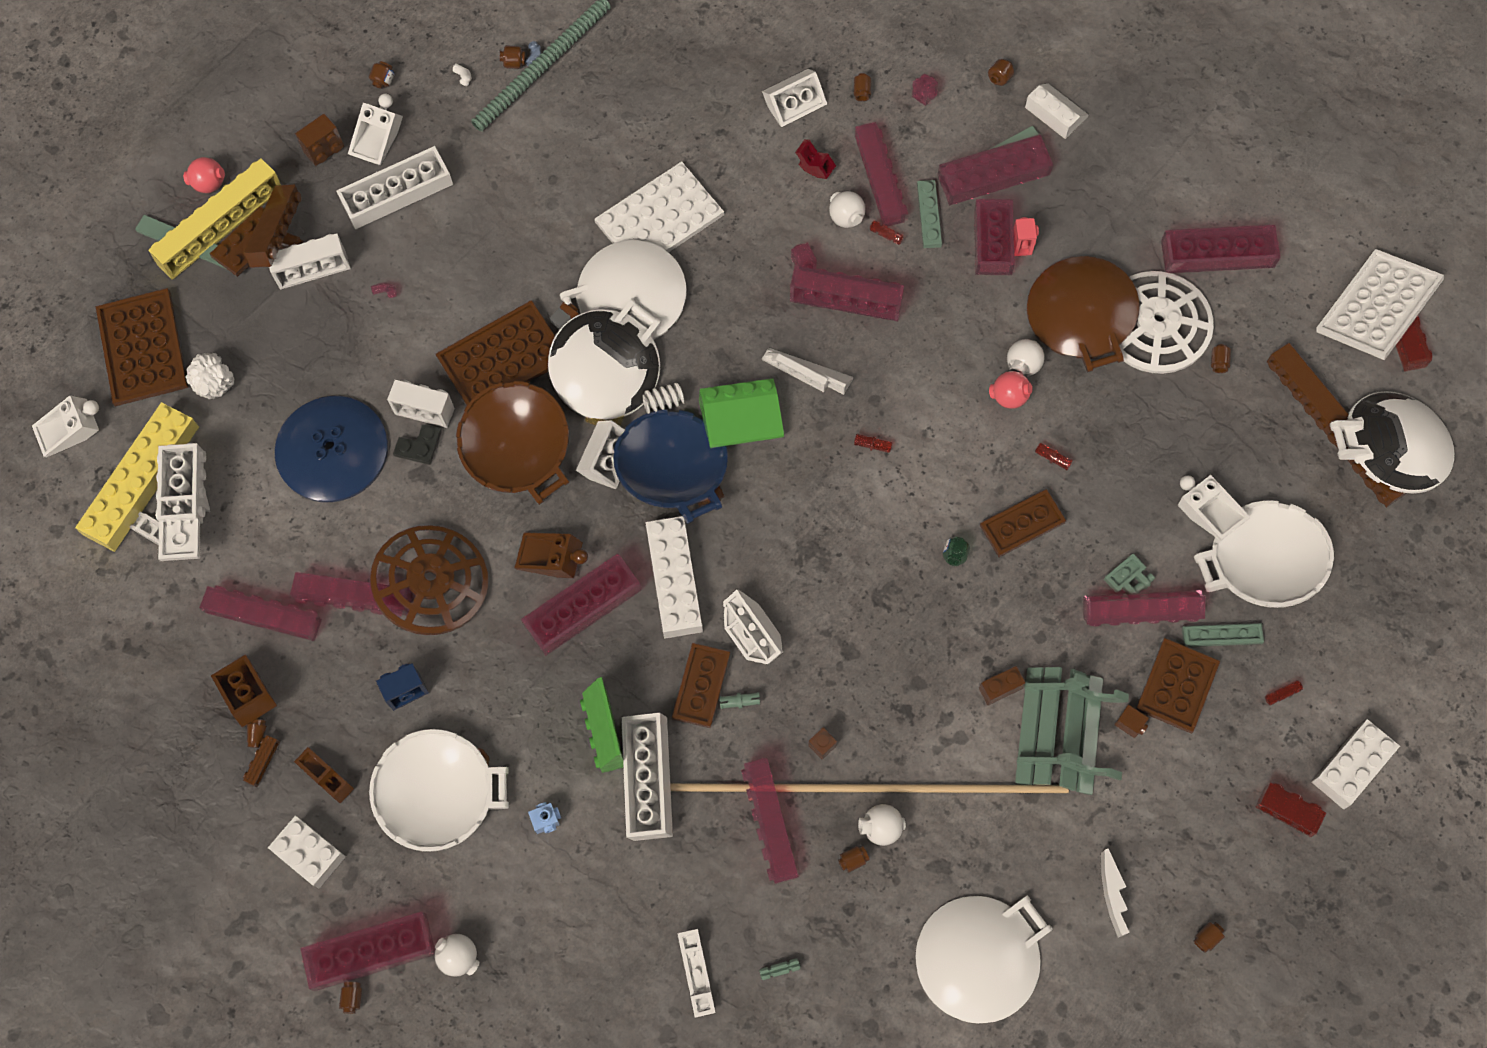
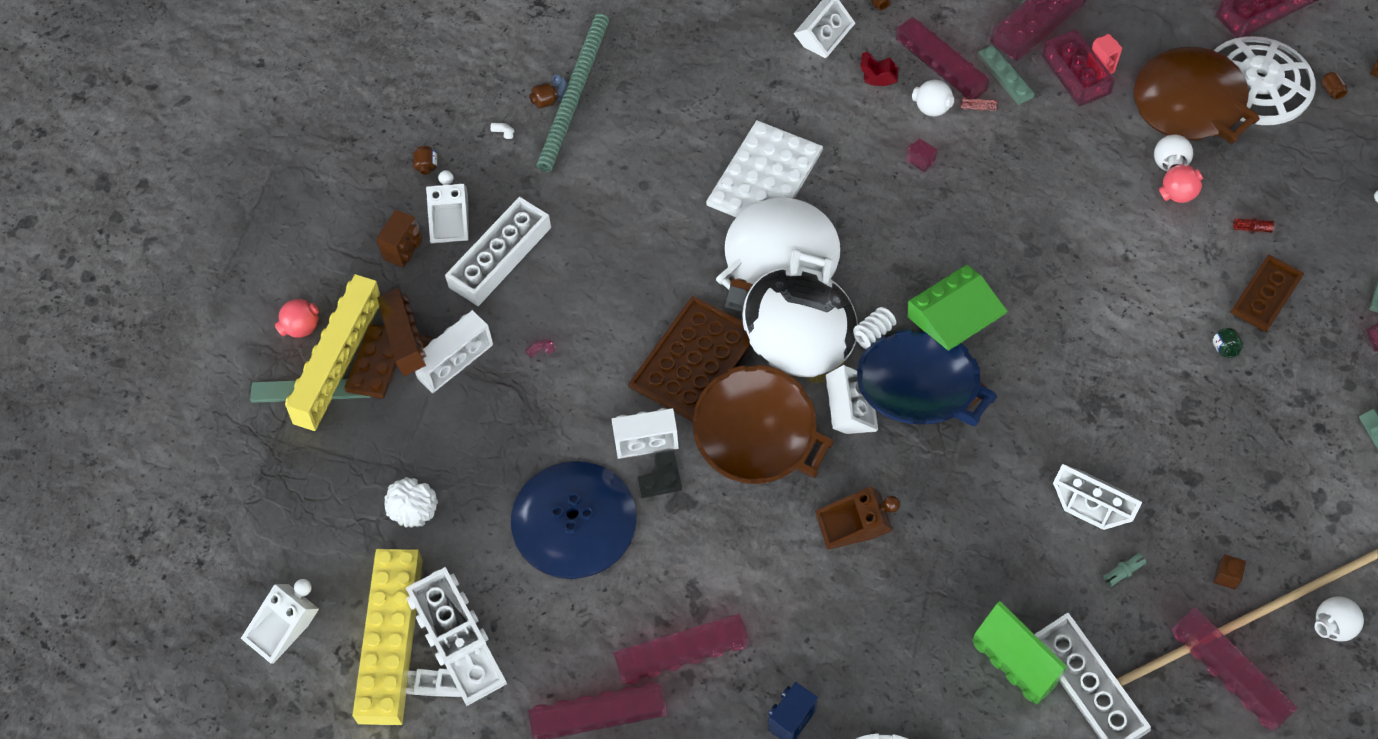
camera: 25 degrees left, 10 degrees down
(141, 347) = (320, 508): reddish brown plate -> none
(429, 588) = (751, 603): reddish brown dish -> none
(581, 604) = (918, 550): clear pink brick -> none
(674, 577) = (989, 484): white brick -> none
(701, 685) = (1079, 573): reddish brown plate -> none
(808, 372) = (988, 250): white wedge -> none
(846, 293) = (983, 165): clear pink brick -> none
(853, 858) = (1331, 666): reddish brown brick -> none
(872, 443) = (1088, 284): clear red axle -> none
(1002, 685) = (1352, 441): reddish brown brick -> none

